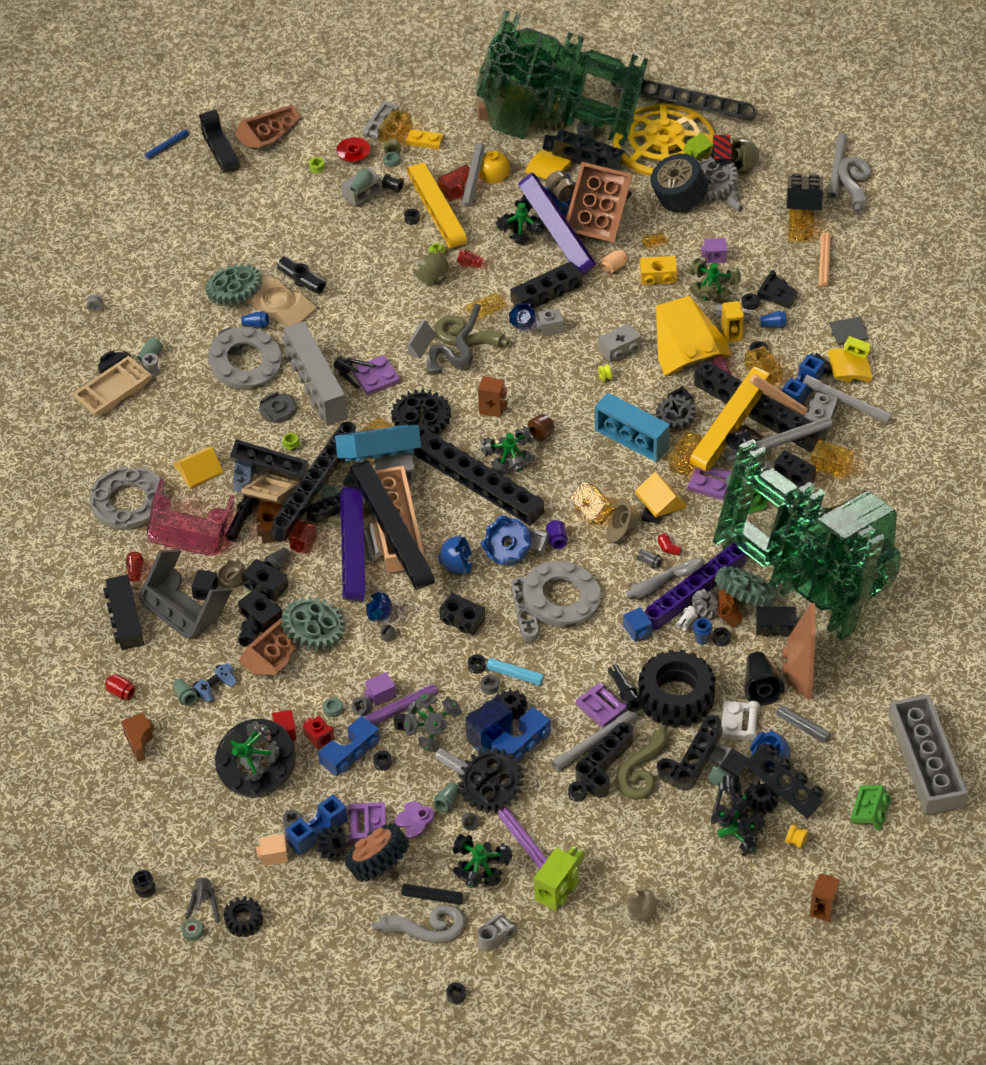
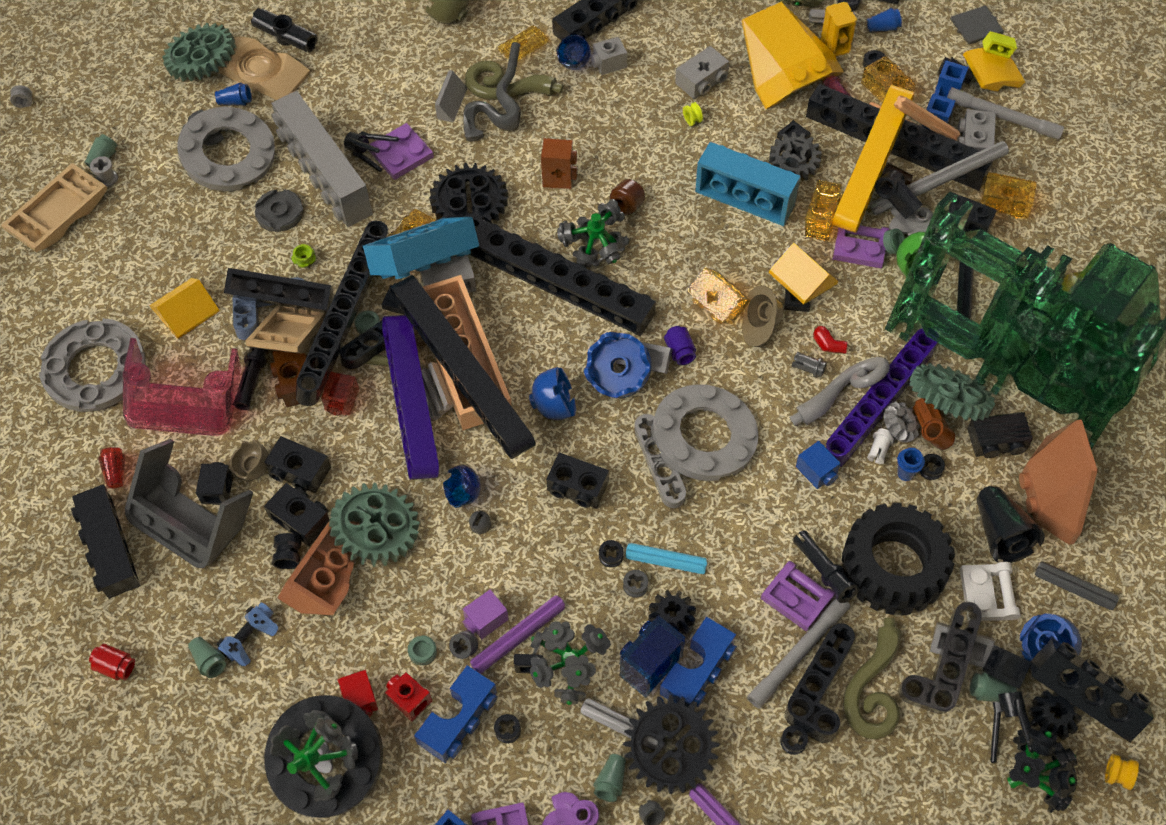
camera: 10 degrees left, 10 degrees up
(110, 359) = (49, 170): black plate -> none
(138, 732) = (145, 736): dark orange arch -> none
(277, 558) = (310, 430): dark grey cone -> none

